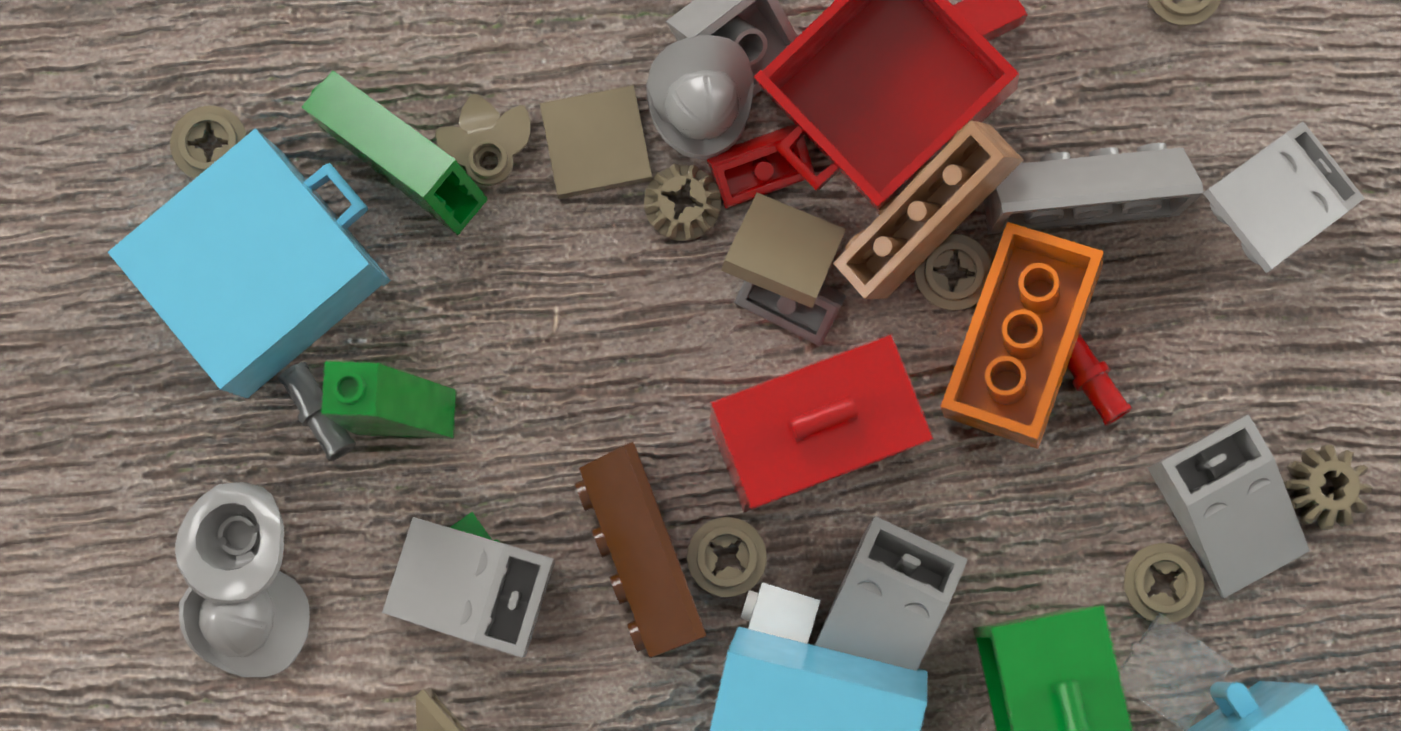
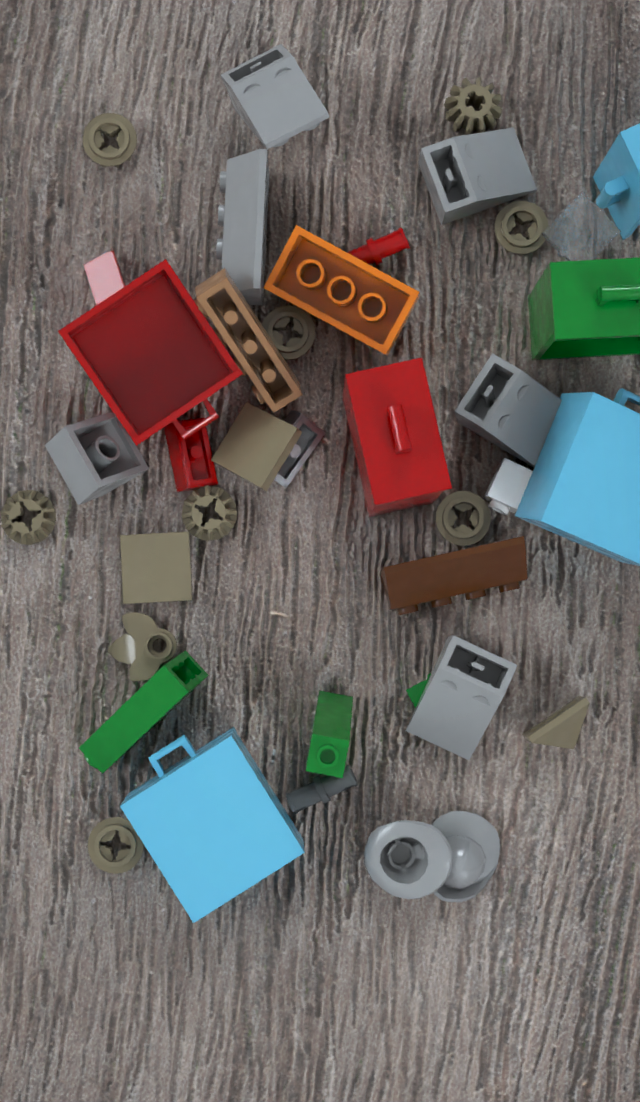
camera: 85 degrees left, 5 degrees up
(700, 94) = (137, 488): light grey hat -> none

